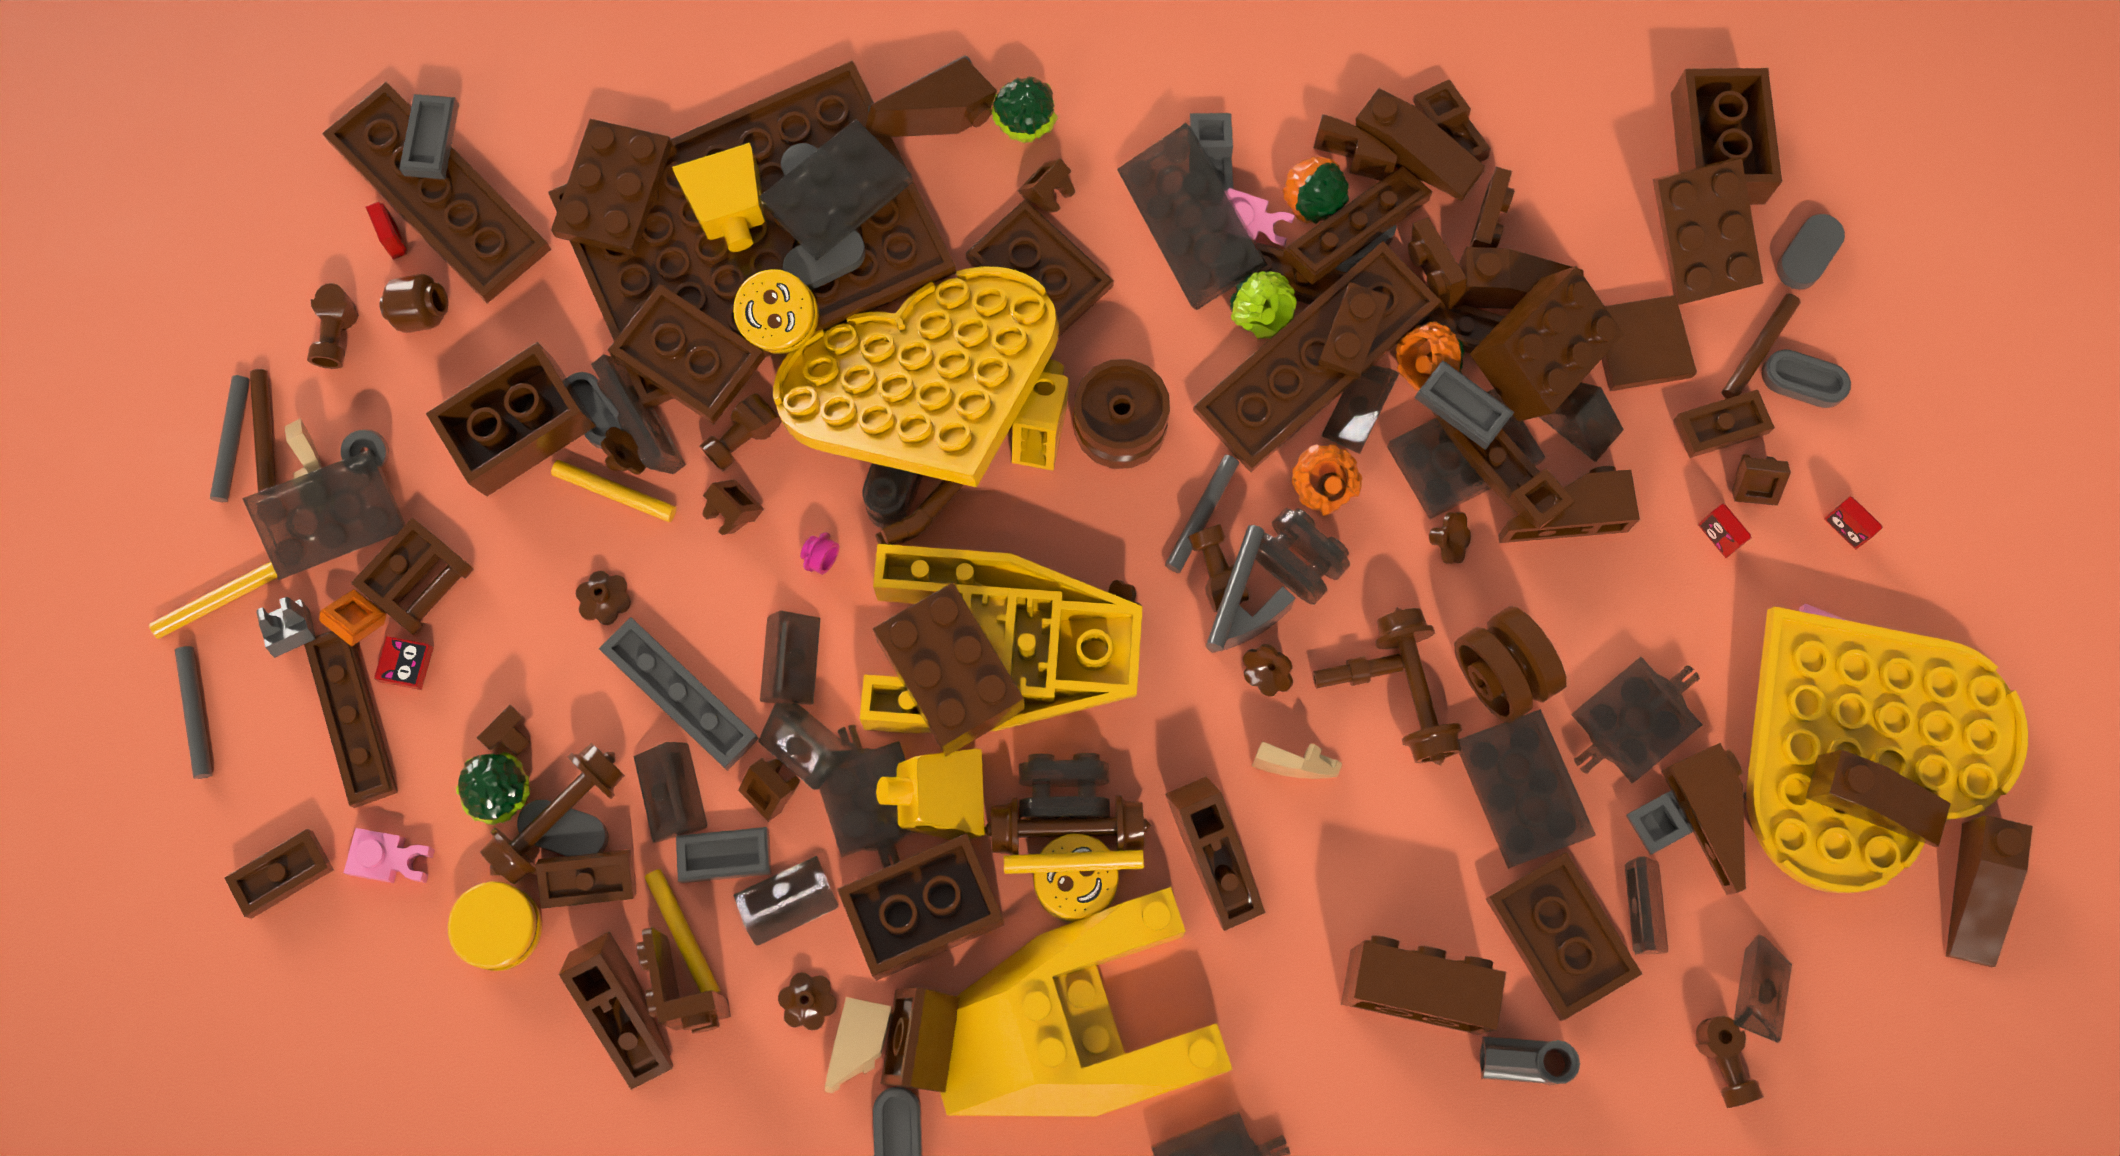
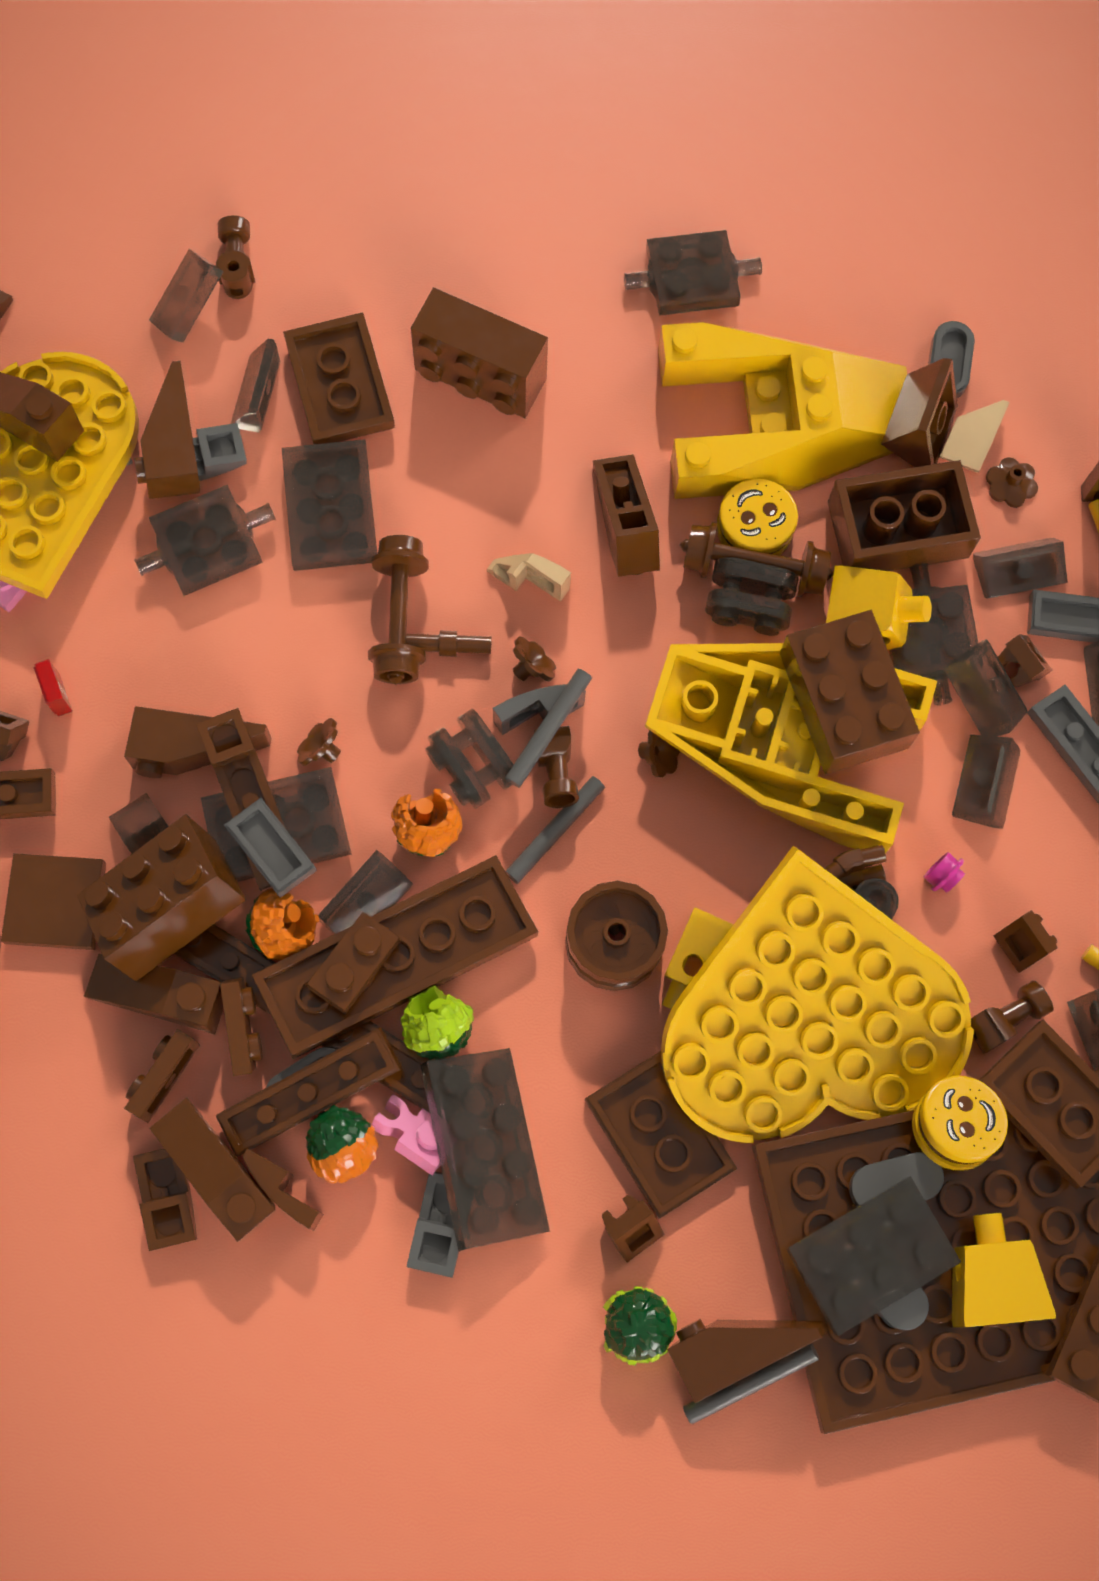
camera: 170 degrees left, 0 degrees up
(1073, 862) = (760, 520): yellow bar -> none
(1510, 664) = (311, 598): reddish brown wheel -> none
(1523, 1060) = (405, 290): dark grey piece -> none

